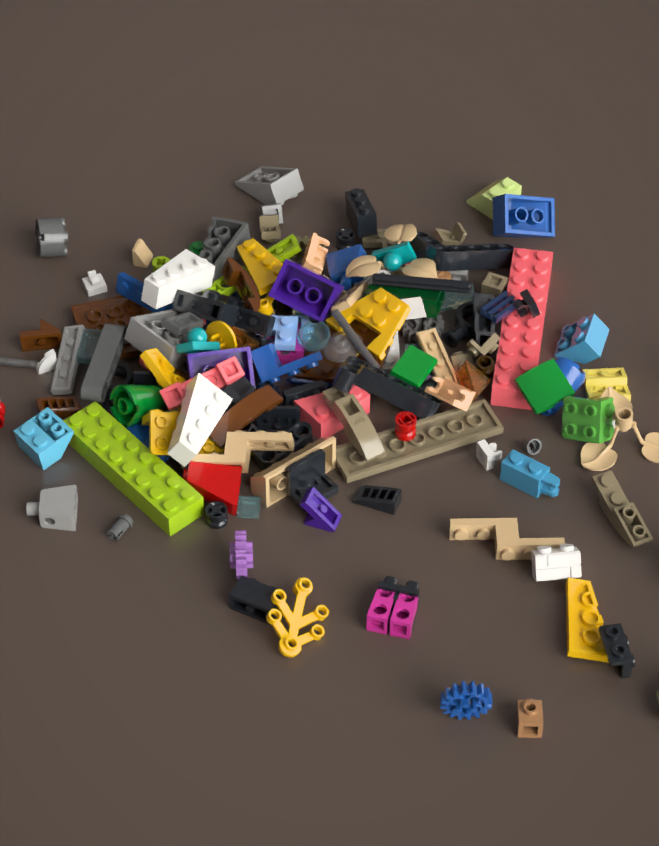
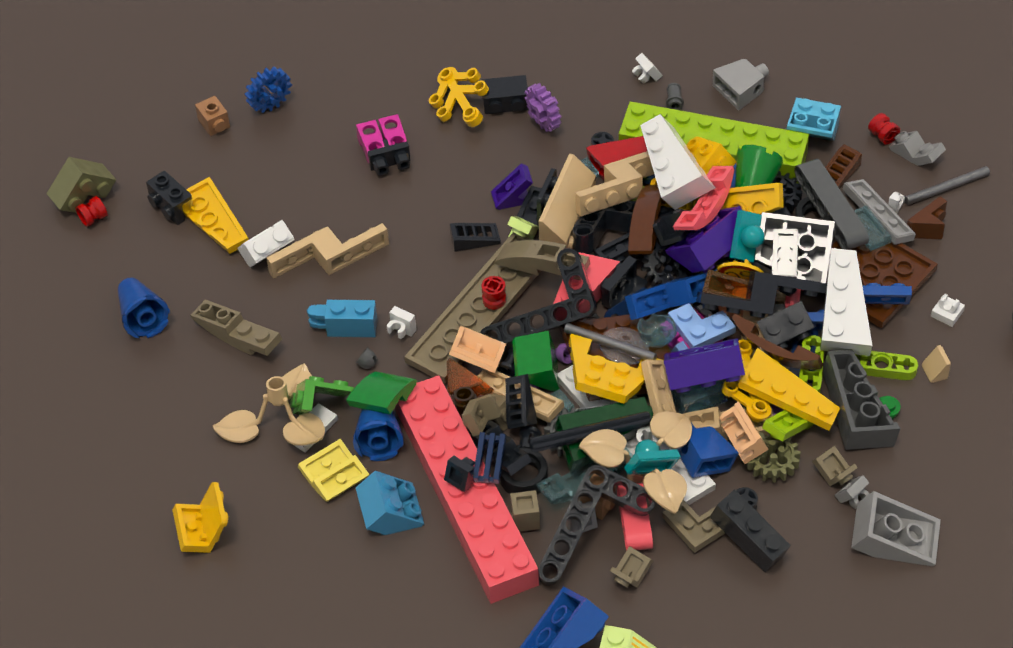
camera: 150 degrees right, 5 degrees up
(117, 561) = (647, 68): none -> white tile
(341, 468) = (522, 227): none -> yellowish green bracket
(449, 342) = (527, 409): none -> black slope

